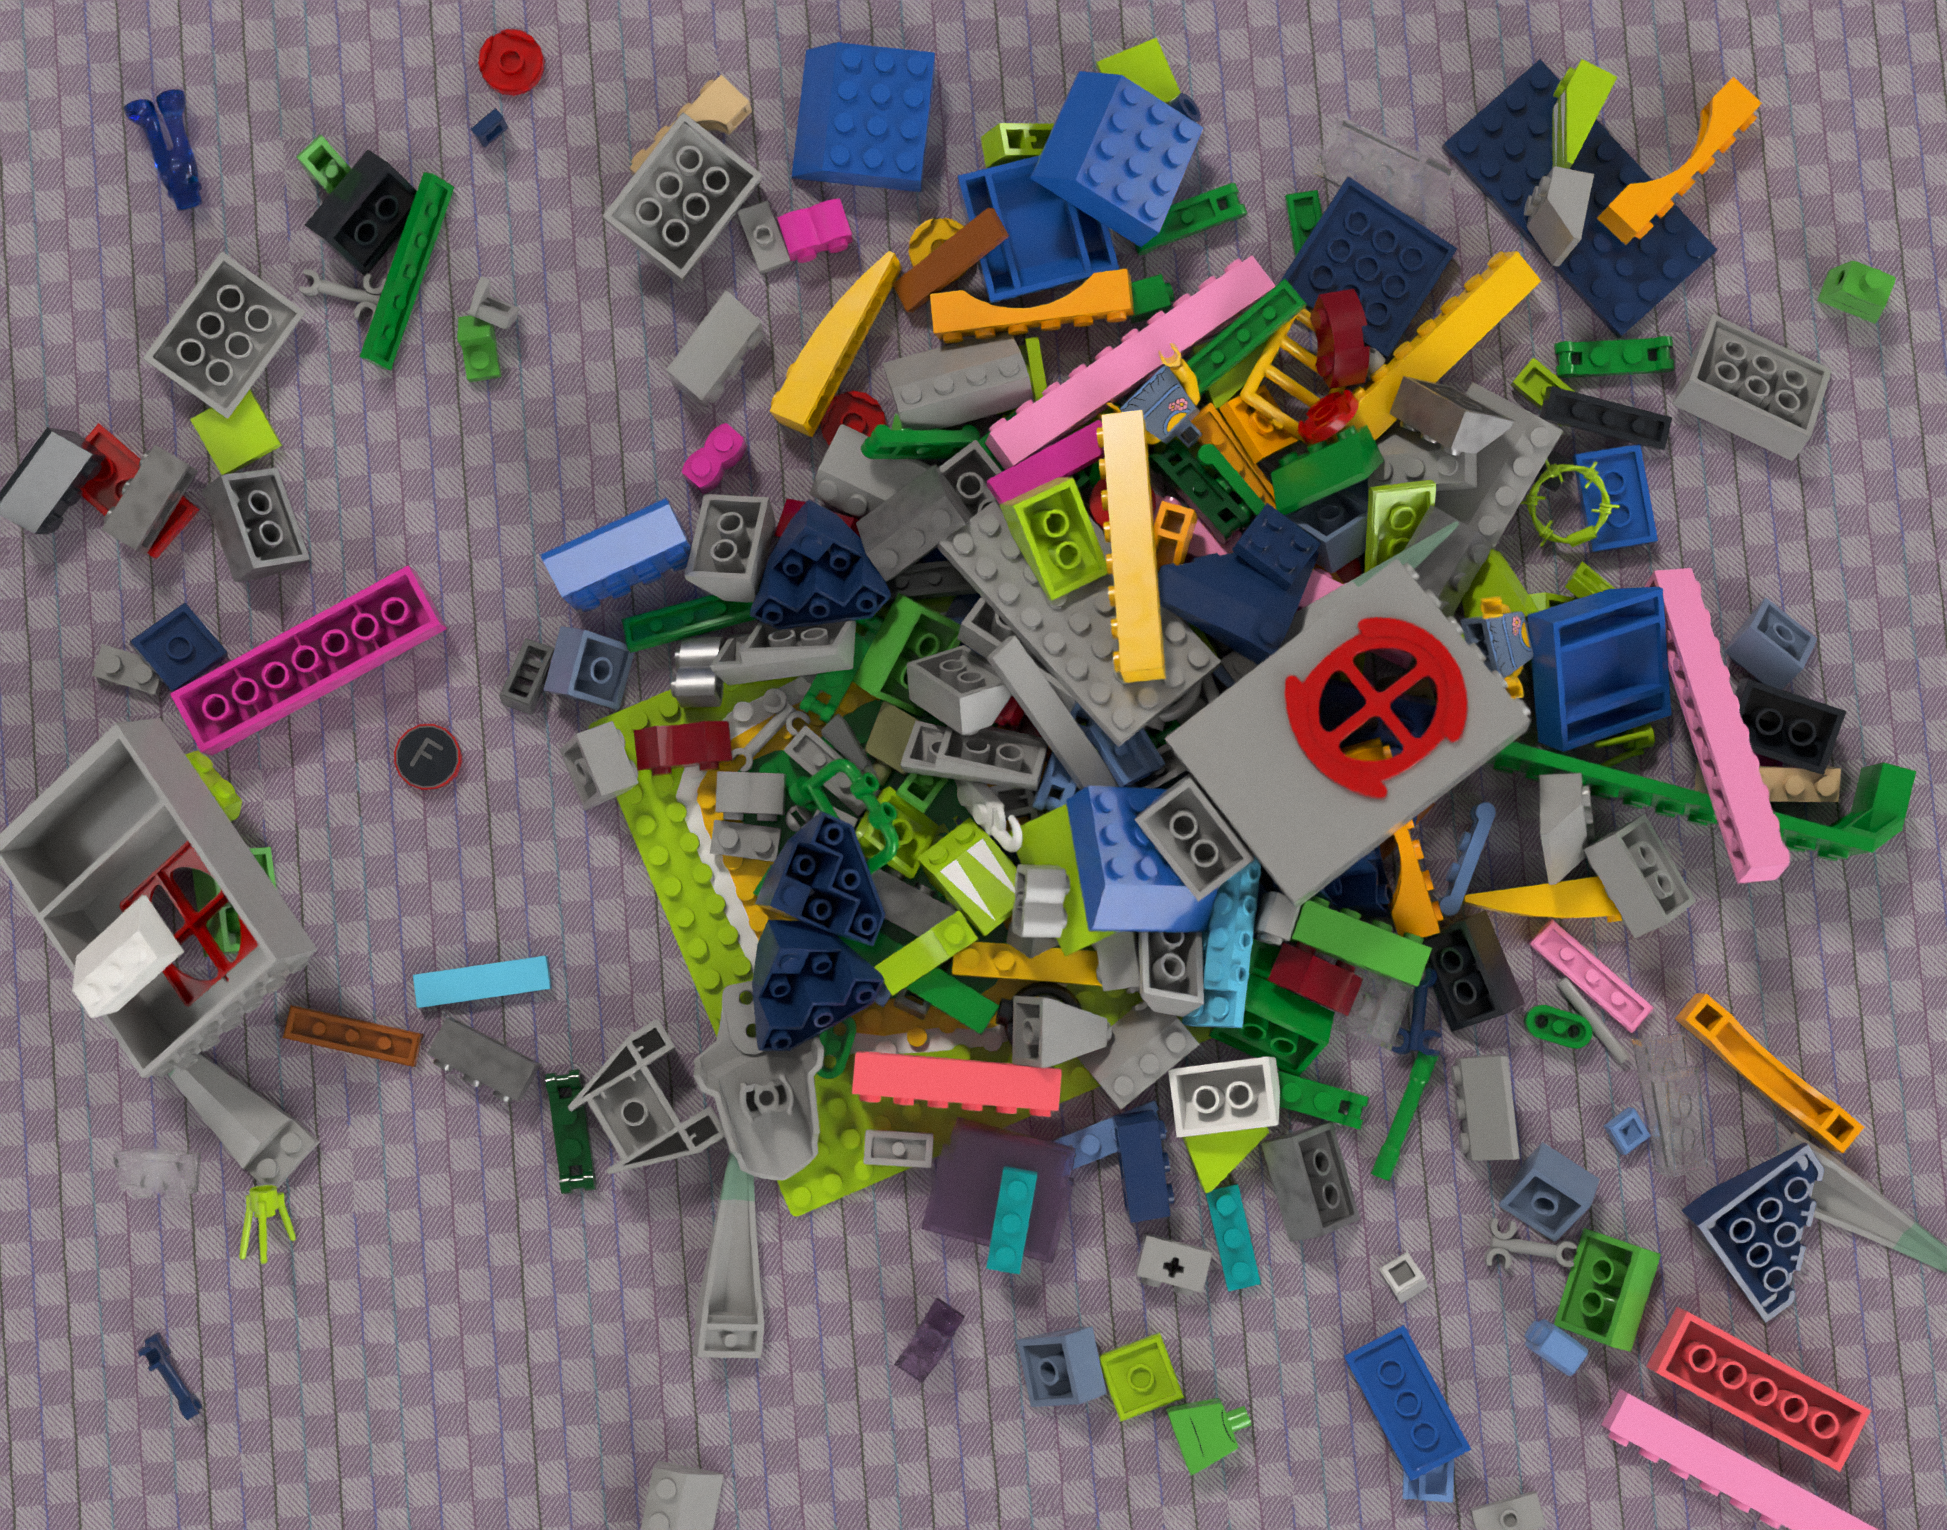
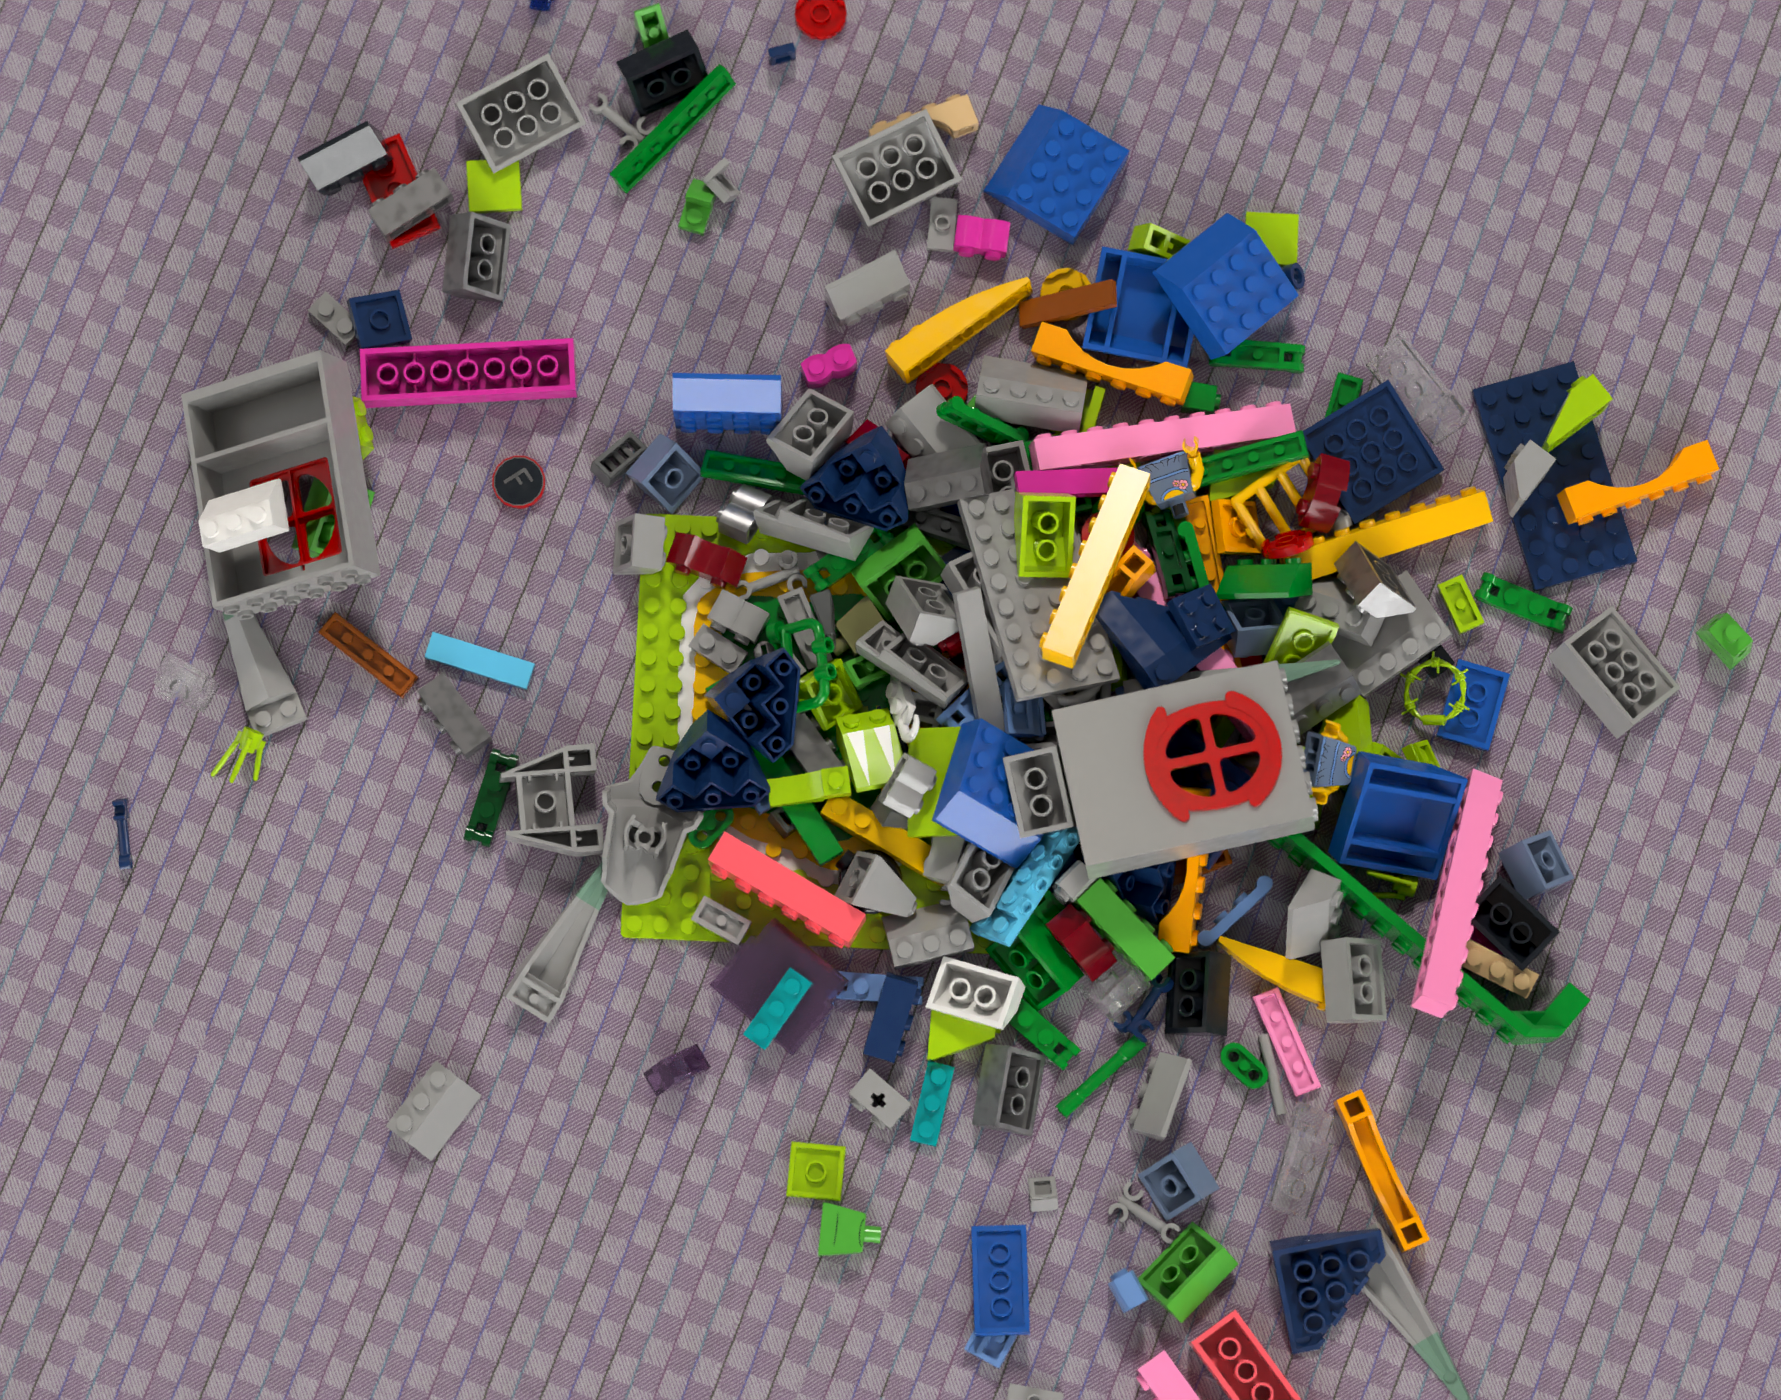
camera: 25 degrees right, 5 degrees down
(1062, 1367) = (762, 1135): sand blue slope -> none
(1605, 418) = (1492, 642): black plate -> none
(1627, 1131) = (1257, 1165): medium blue tile -> none

